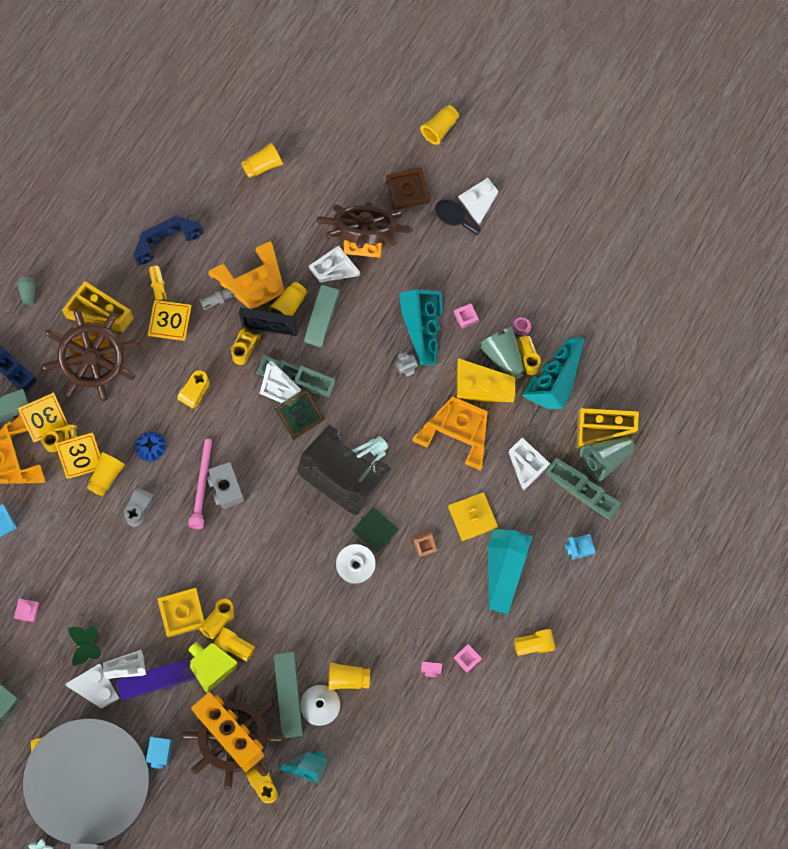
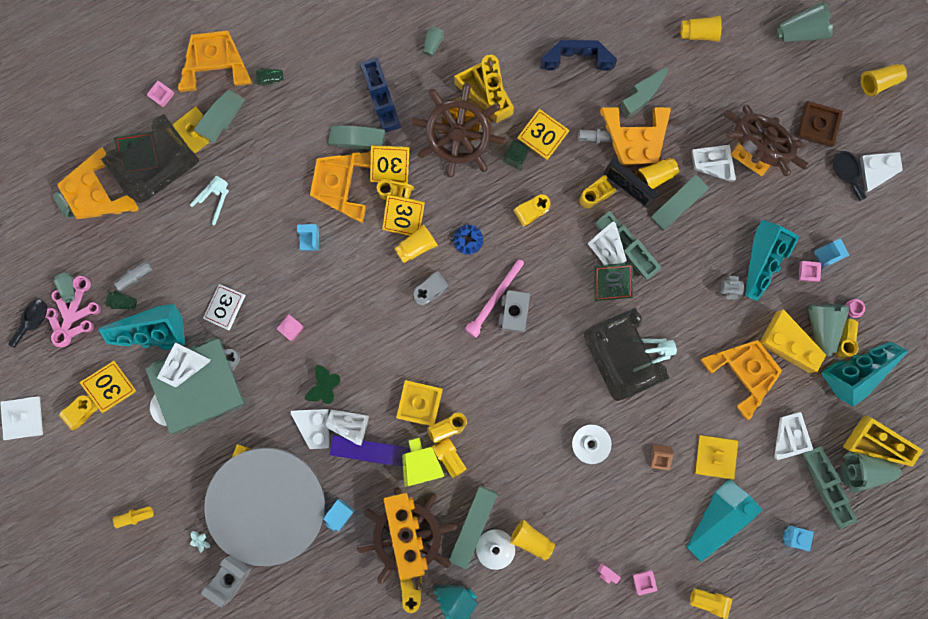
camera: 30 degrees right, 10 degrees up
(98, 290) = (485, 70): none -> yellow beam
(155, 350) = (516, 154): none -> clear green brick
(157, 284) = (549, 95): yellow axle -> none
(239, 241) = (642, 93): none -> sand green slope
(350, 113) = (807, 25): none -> sand green cone
(375, 530) = (624, 422): clear green piece -> none
(476, 291) = (831, 253): none -> medium azure panel

